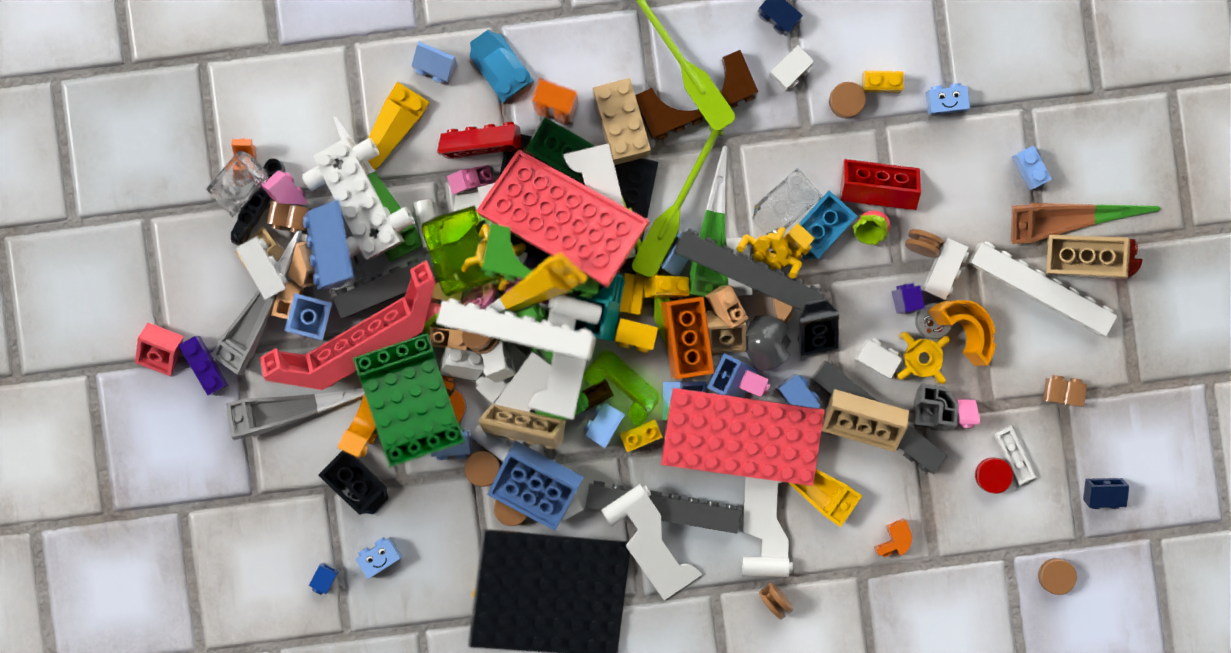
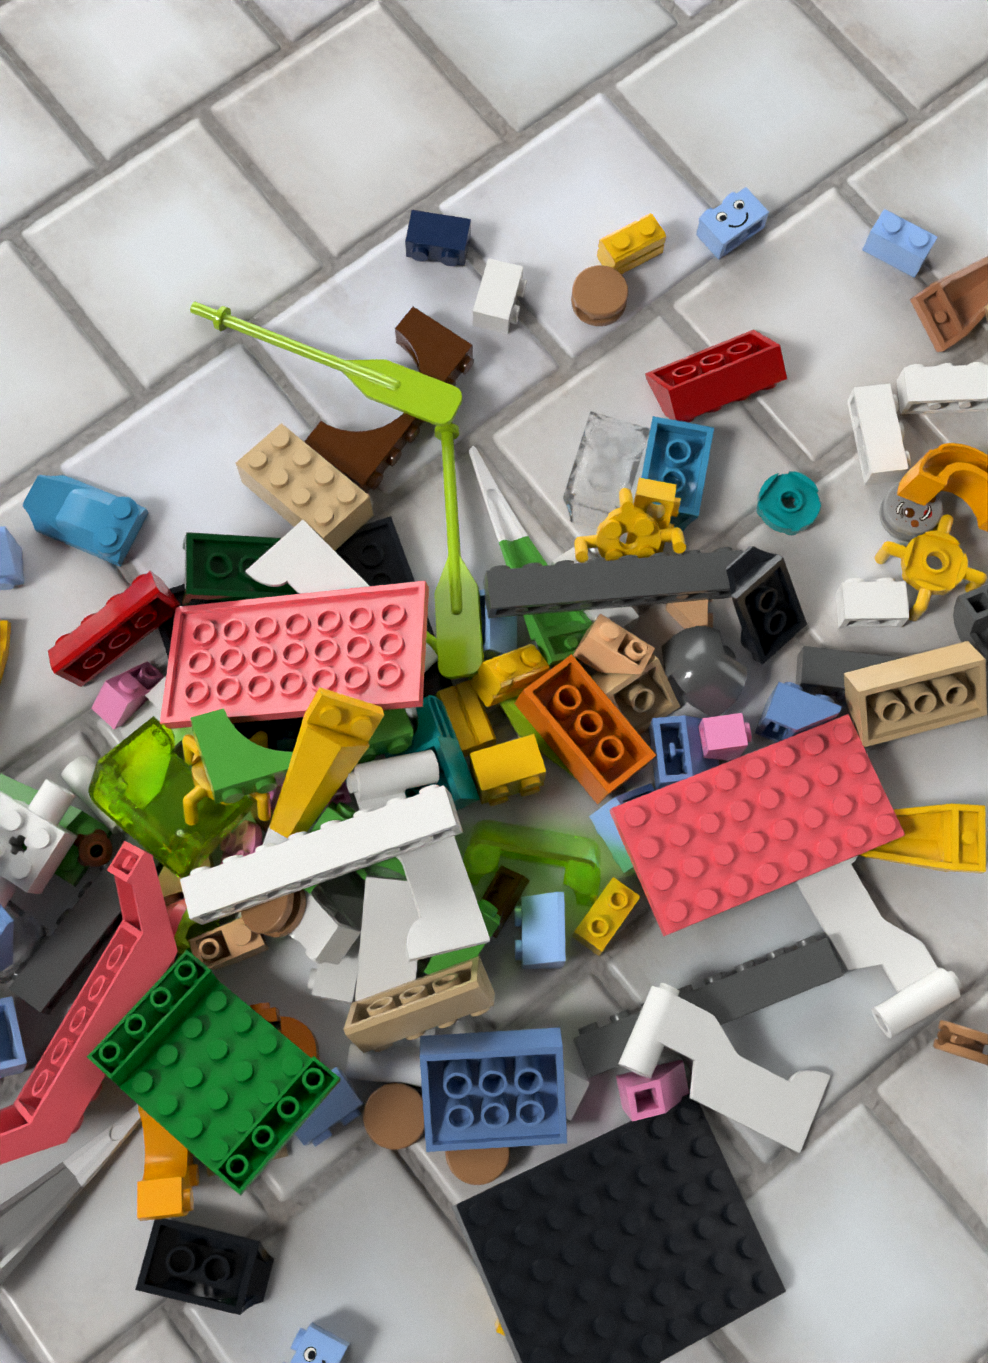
camera: 35 degrees left, 15 degrees down
(409, 247) = (84, 844): none -> reddish brown brick
(461, 364) = (268, 970): white brick -> none
(555, 101) = (187, 499): orange brick -> none
(609, 534) = (653, 1096): none -> bright pink slope
(872, 227) = (744, 433): lime hair -> none
(877, 268) = (790, 519): none -> teal plate
(908, 298) = (859, 491): dark purple brick -> none
(924, 243) = (827, 413): medium nougat head -> none

